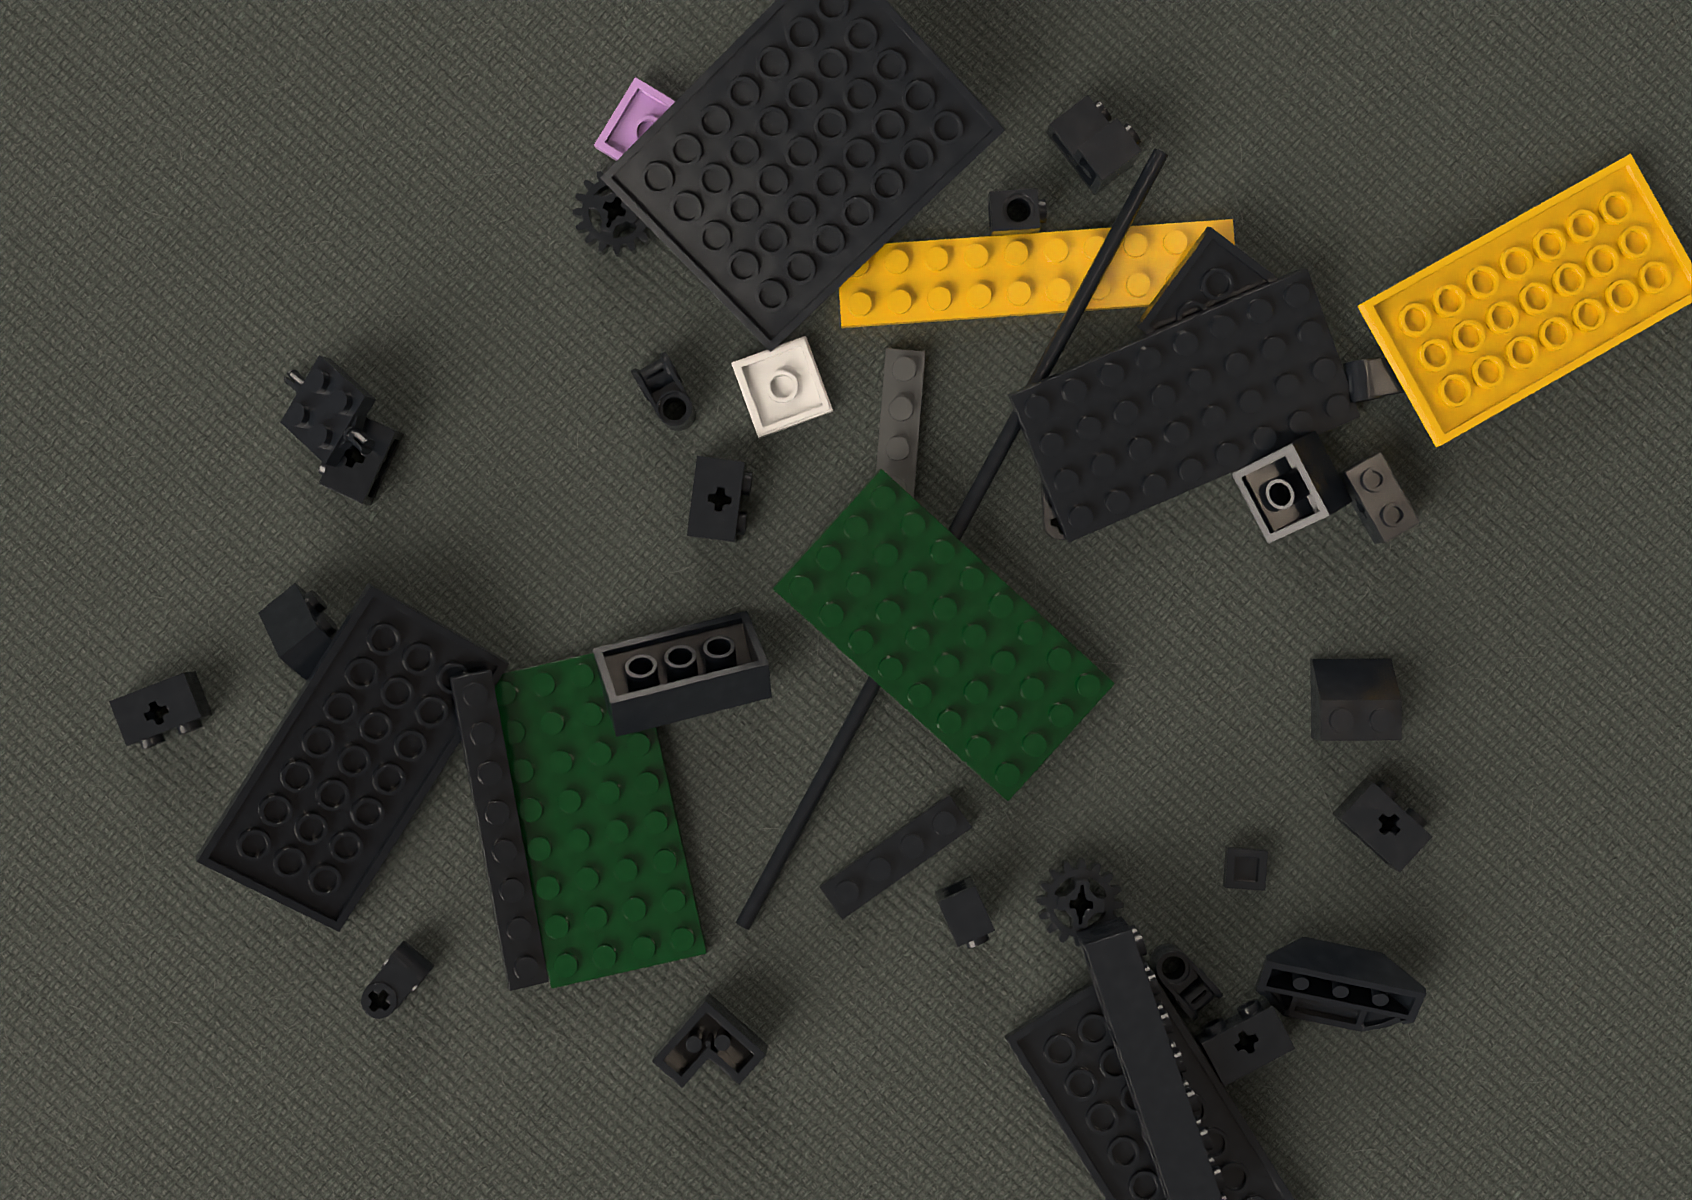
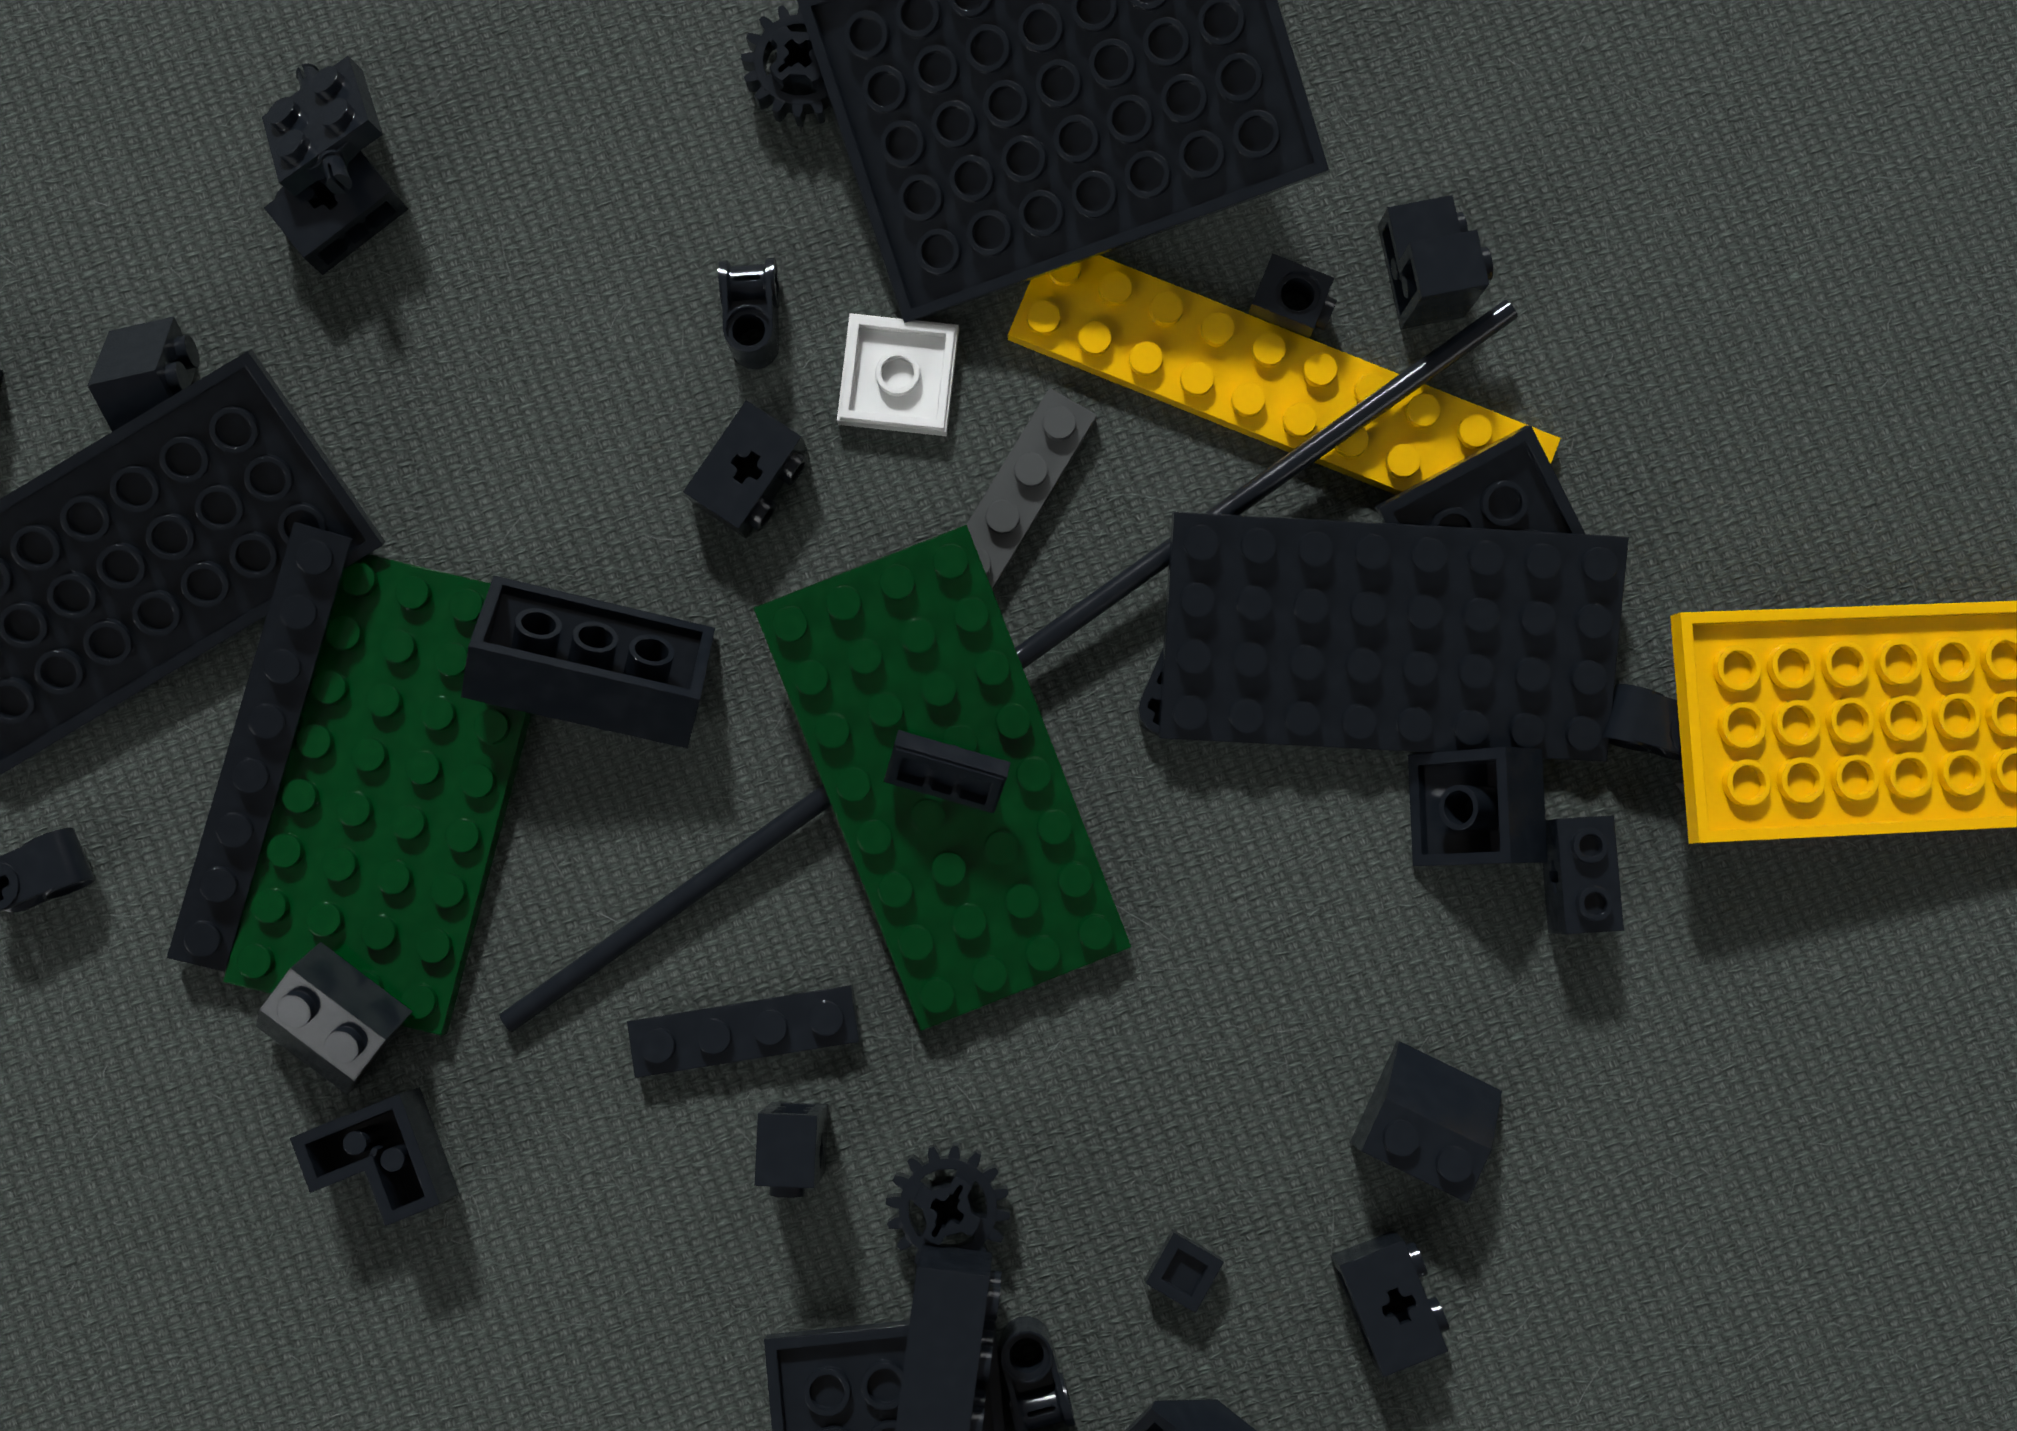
camera: 30 degrees right, 5 degrees down
(636, 976) = (331, 1017): none -> black slope
(947, 633) = (946, 771): none -> black plate

